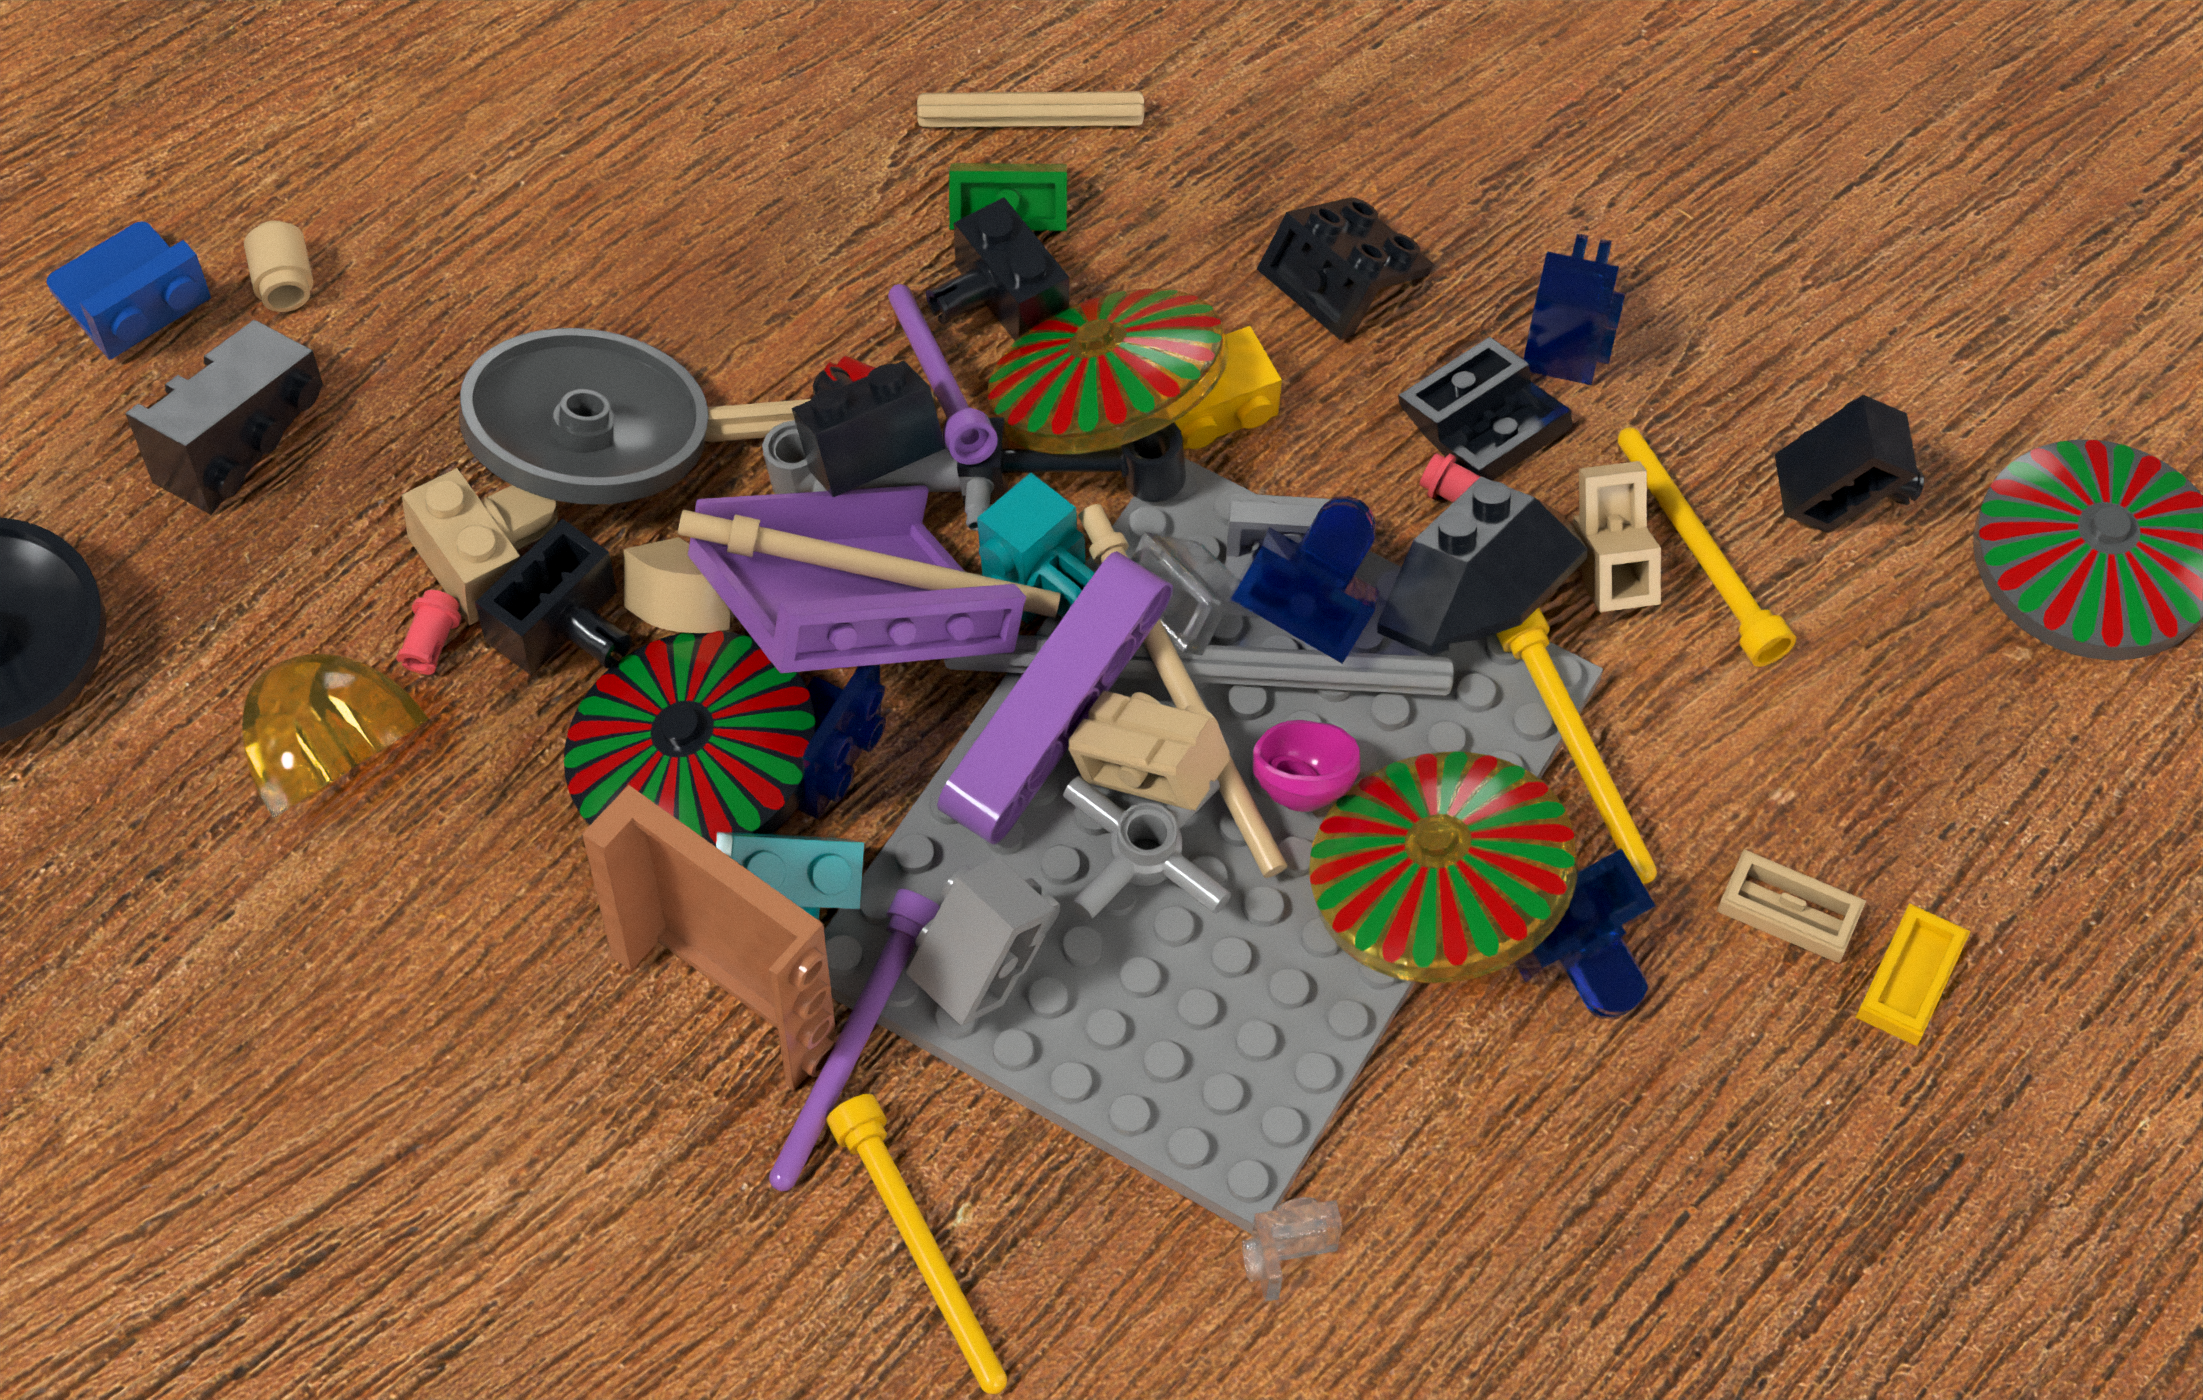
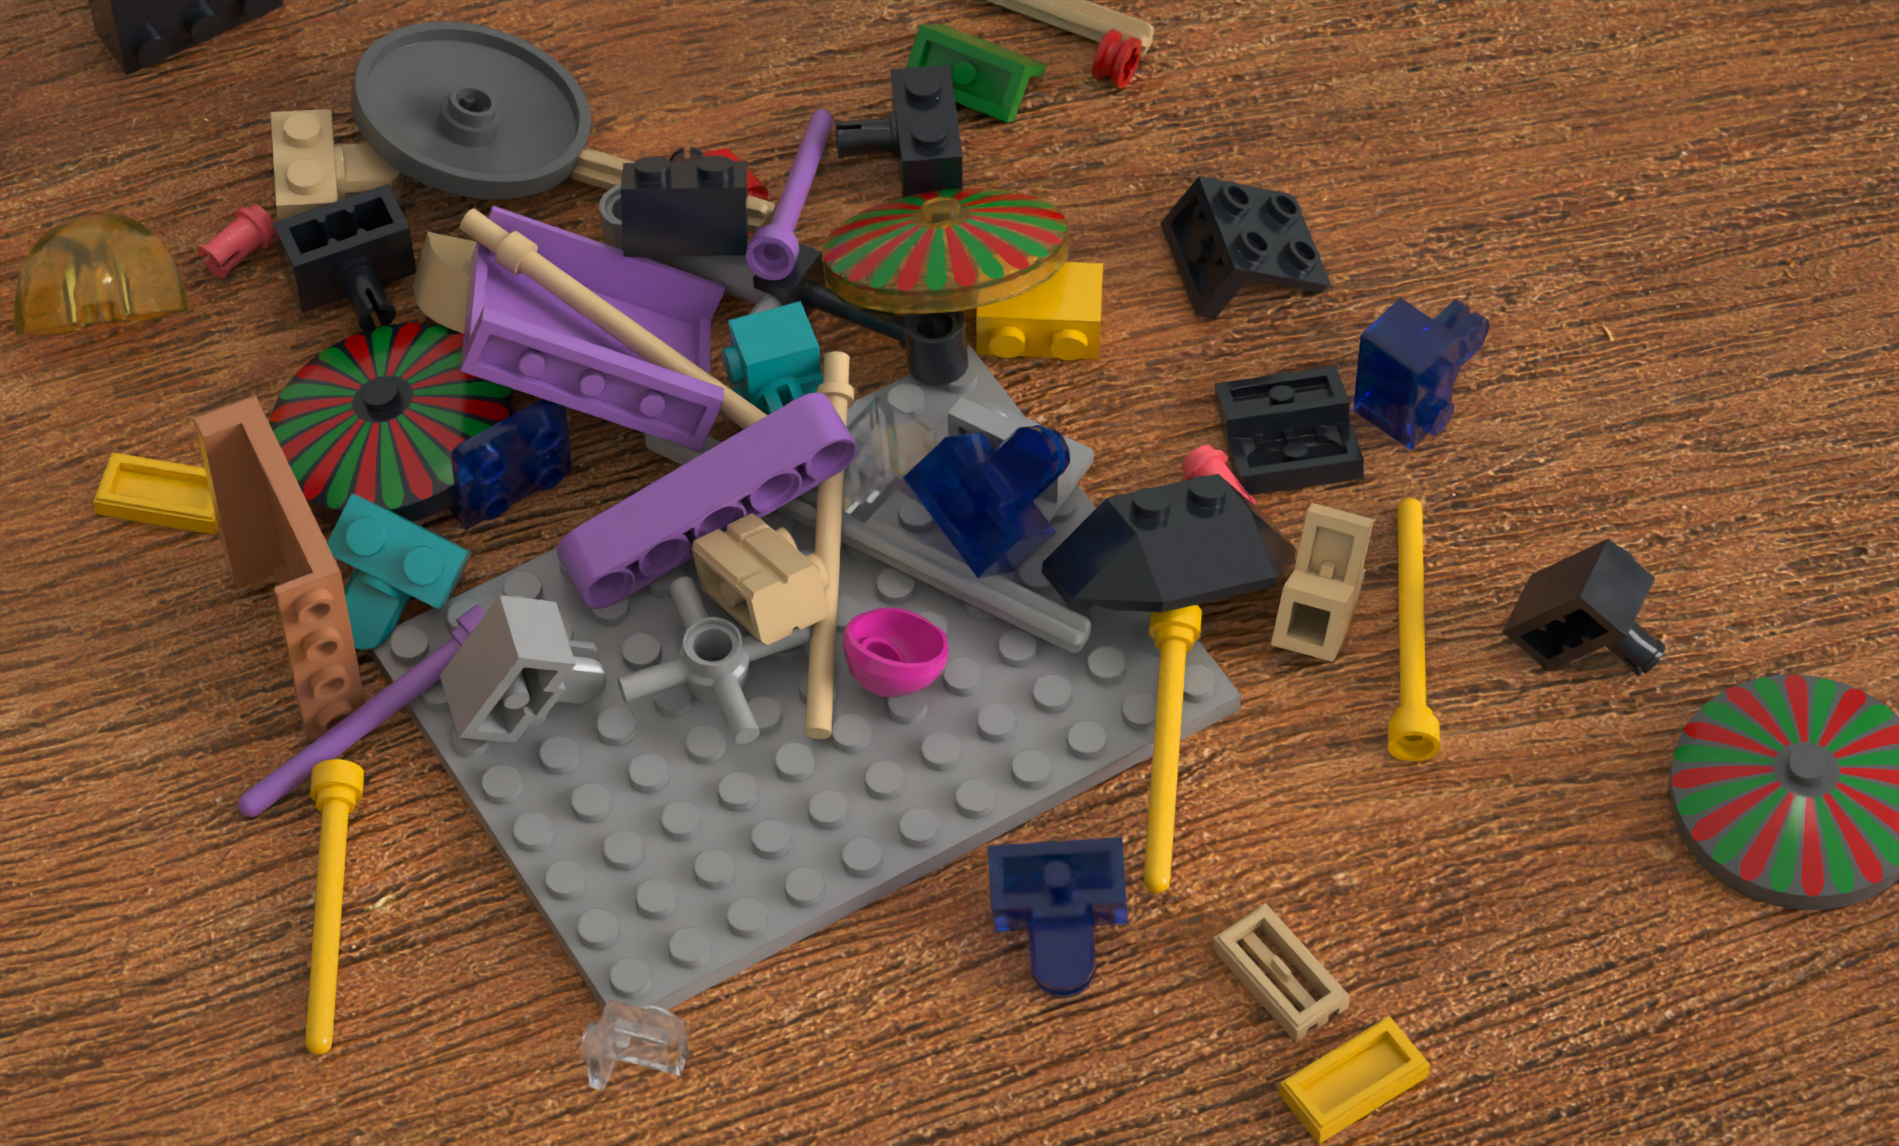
camera: 30 degrees right, 5 degrees down
(507, 909) = (156, 494): none -> yellow tile
(1129, 134) = (1116, 58): none -> red bush
(1443, 867) = (958, 787): dish -> none

